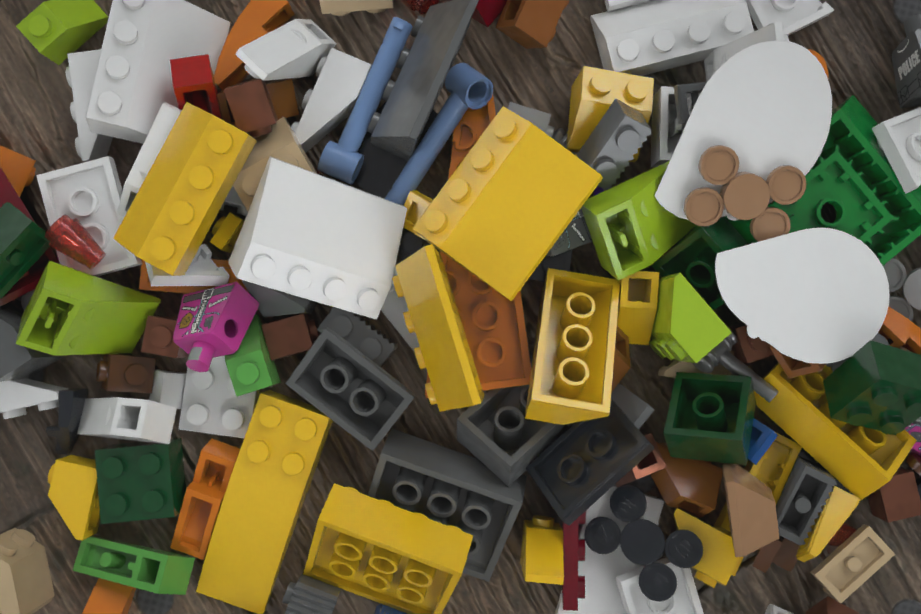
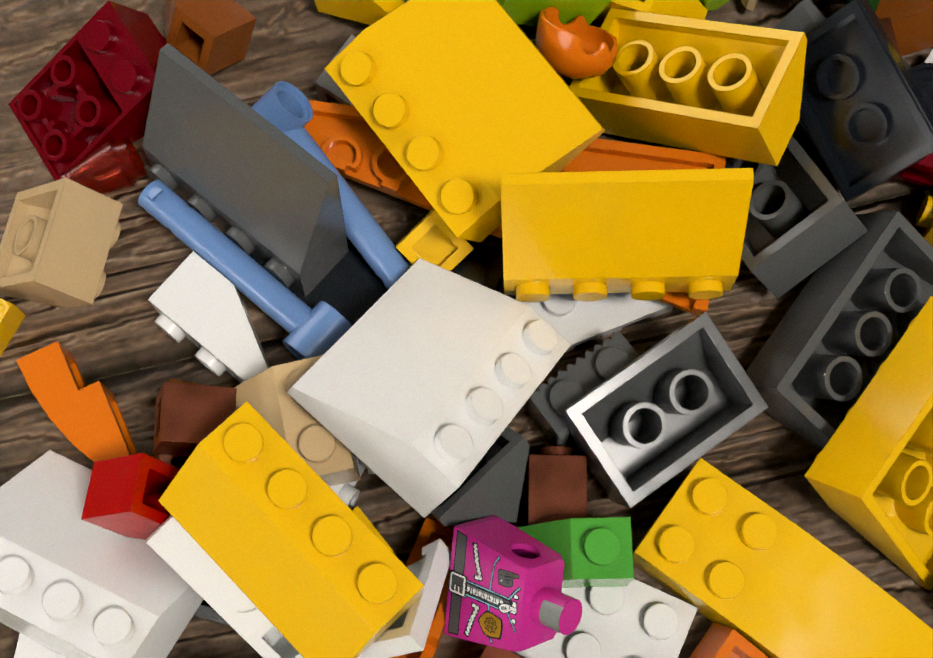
camera: 70 degrees left, 15 degrees down
(286, 51) = (132, 354): white slope -> none
(575, 264) = (574, 47): none -> orange hair

